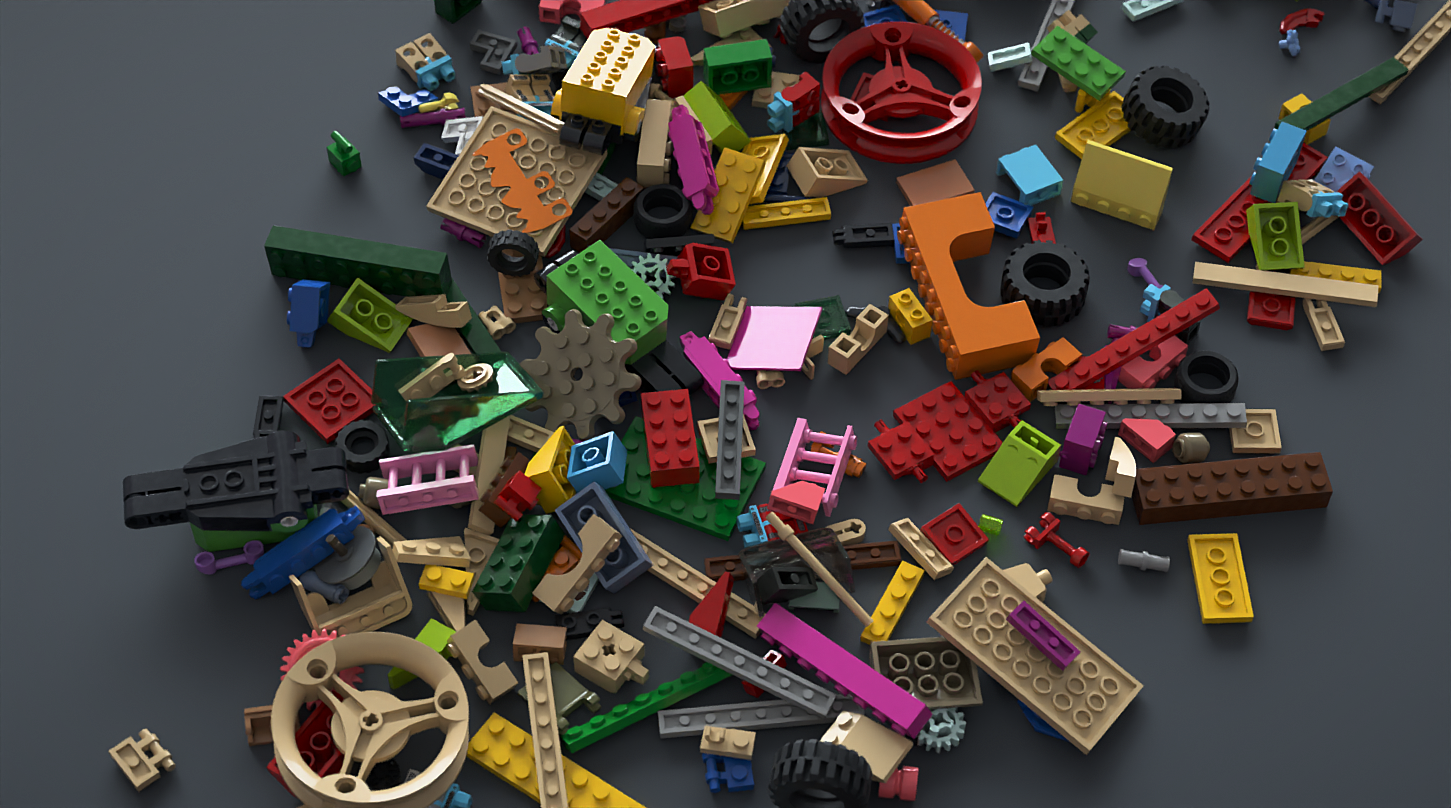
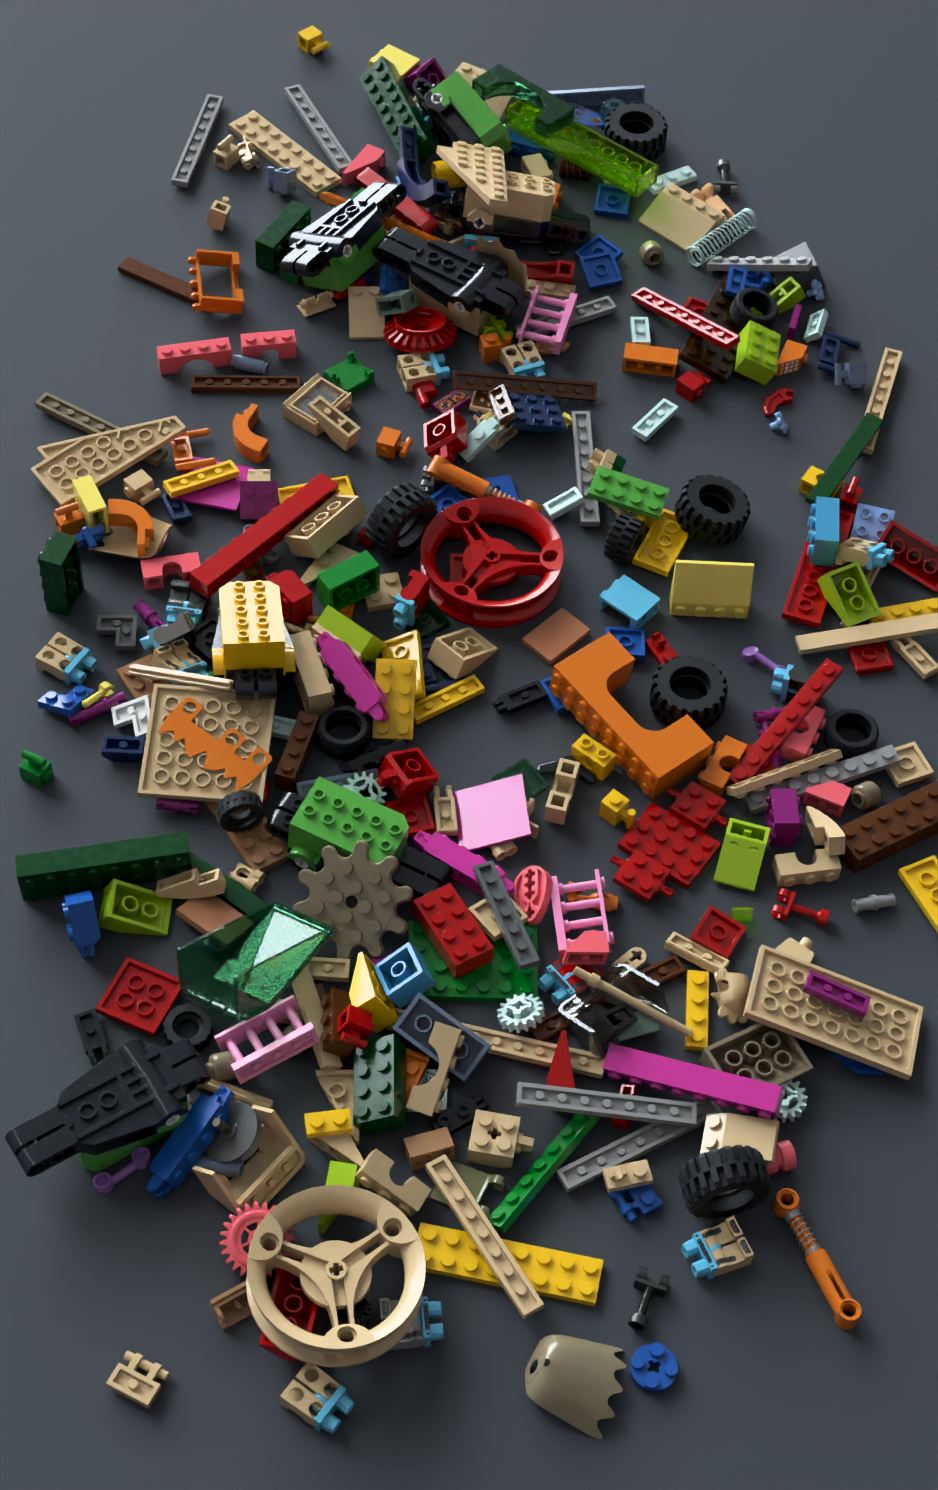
camera: 25 degrees left, 0 degrees up
(433, 379) = (225, 949): tan plate -> none
(434, 551) = (305, 1100): tan wing -> none
(470, 382) = (263, 925): tan gear -> none
(689, 314) = (416, 813): none -> red plate
(701, 543) = (521, 1013): none -> light aqua gear
(775, 430) = (542, 888): none -> coral piece
(907, 375) = (615, 808): none -> yellow brick
(931, 599) = (731, 996): none -> tan piece
(1053, 108) = (624, 539): none -> black tyre
(1330, 137) = (850, 496): none -> red brick

